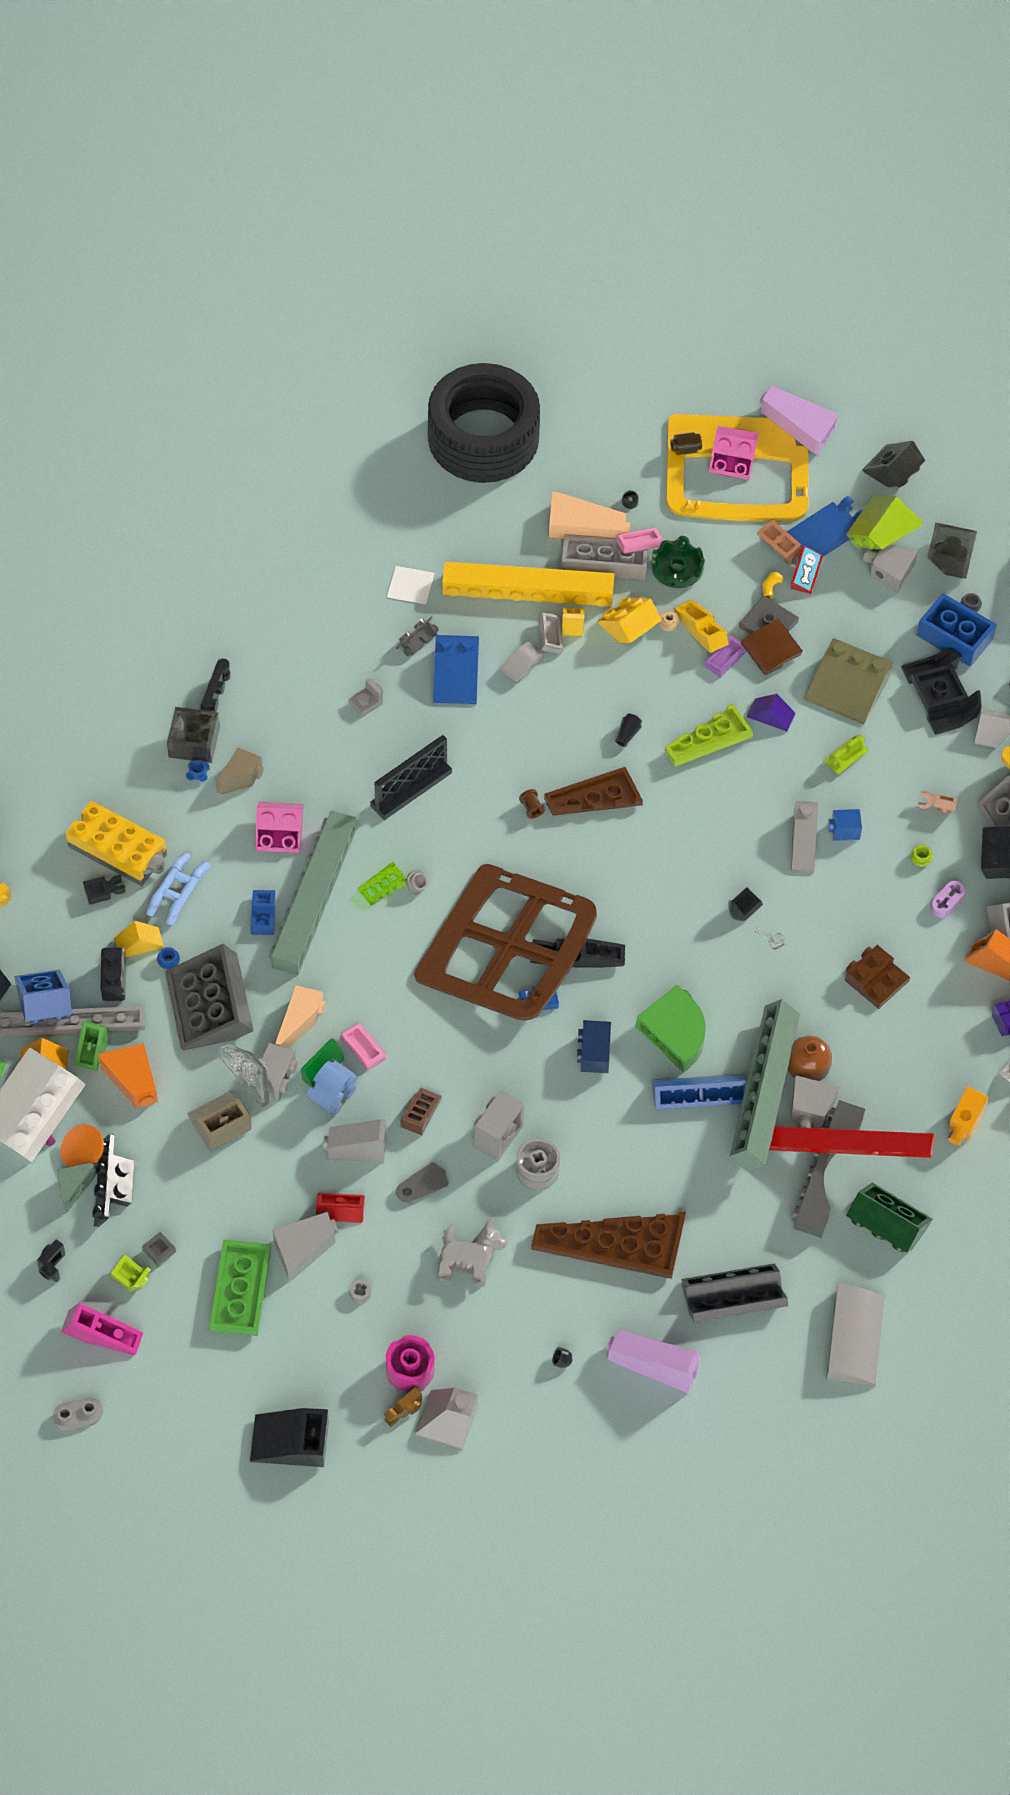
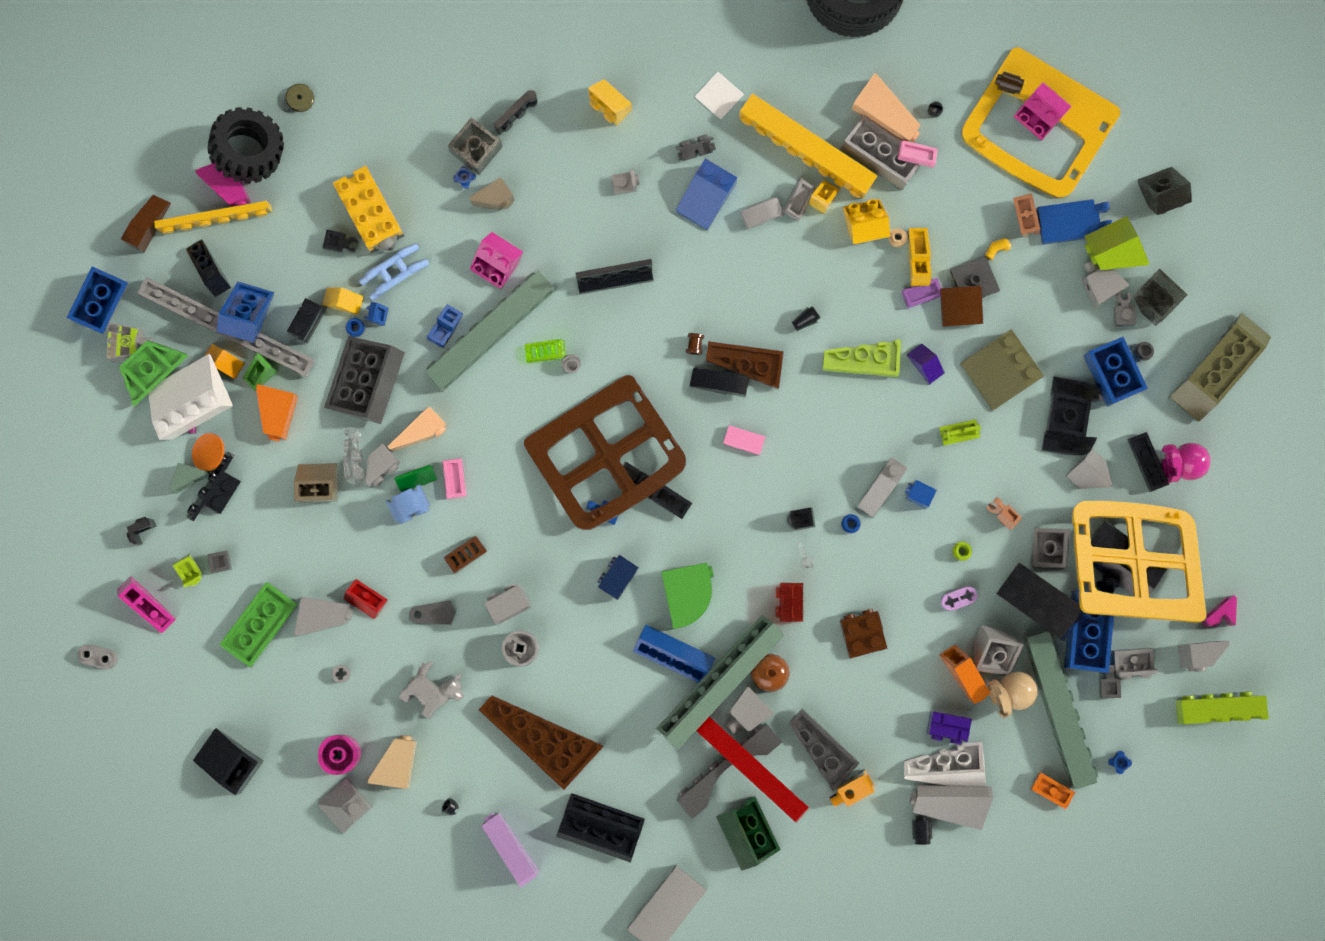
camera: 30 degrees right, 25 degrees up
(185, 934) = (377, 313): none -> blue tile
(305, 636) = (609, 102): none -> yellow slope
(357, 1141) = (401, 558): light grey slope -> none
(406, 1405) = (323, 783): pearl gold plate -> none
(478, 1345) = (396, 764): none -> tan slope
(580, 824) = (719, 382): none -> black slope
(638, 865) = (744, 440): none -> bright pink tile
(677, 552) = (941, 179): dark green plate -> none
(785, 982) = (790, 602): none -> clear red brick
(796, 880) = (855, 519): none -> blue plate
(799, 418) = (1116, 109): lavender slope -> none
(806, 570) = (1032, 251): slope -> none
(915, 1101) = (827, 753): none -> dark grey wing
(928, 581) = (1124, 313): none -> light grey plate

